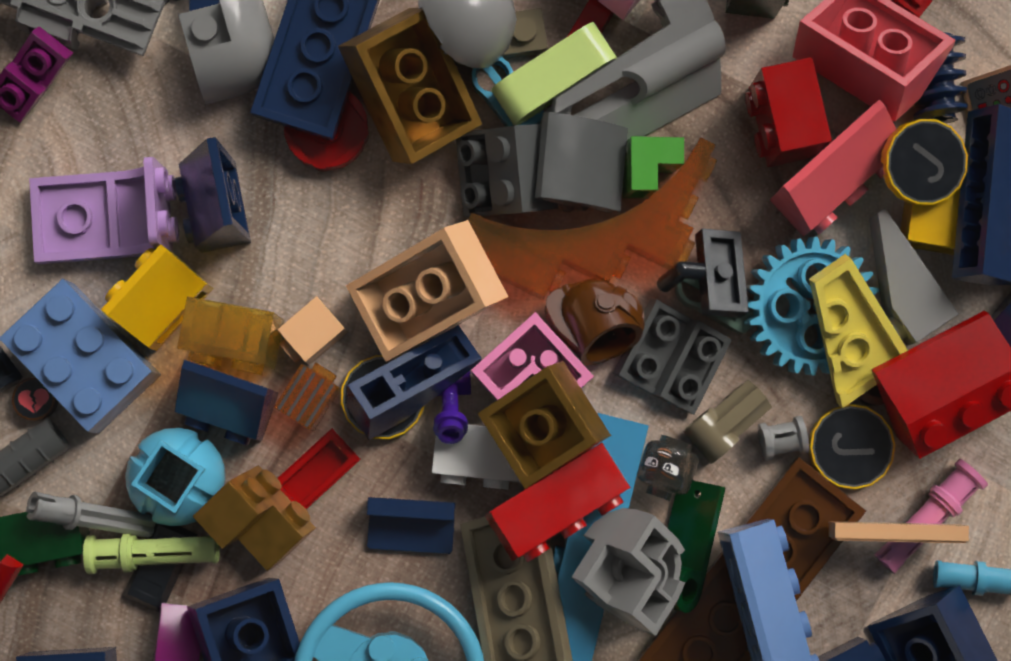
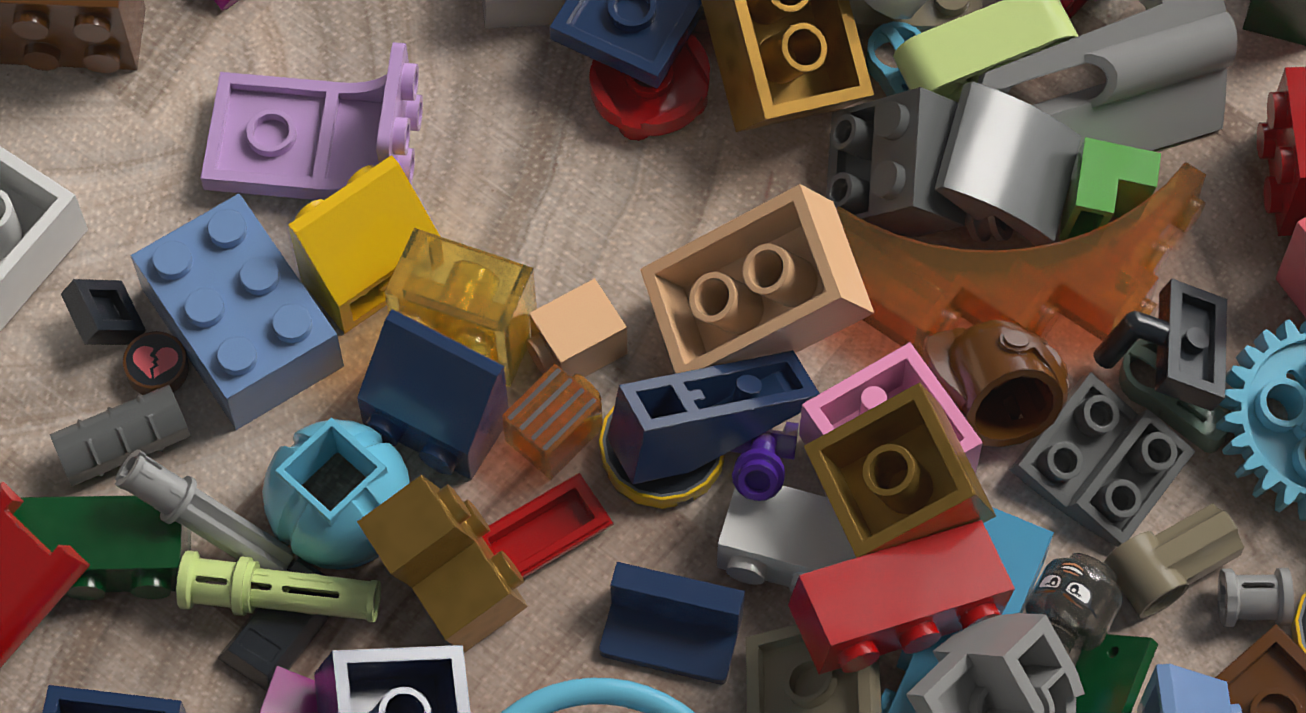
camera: 15 degrees right, 20 degrees down
(212, 198) = (471, 128): dark blue slope -> none

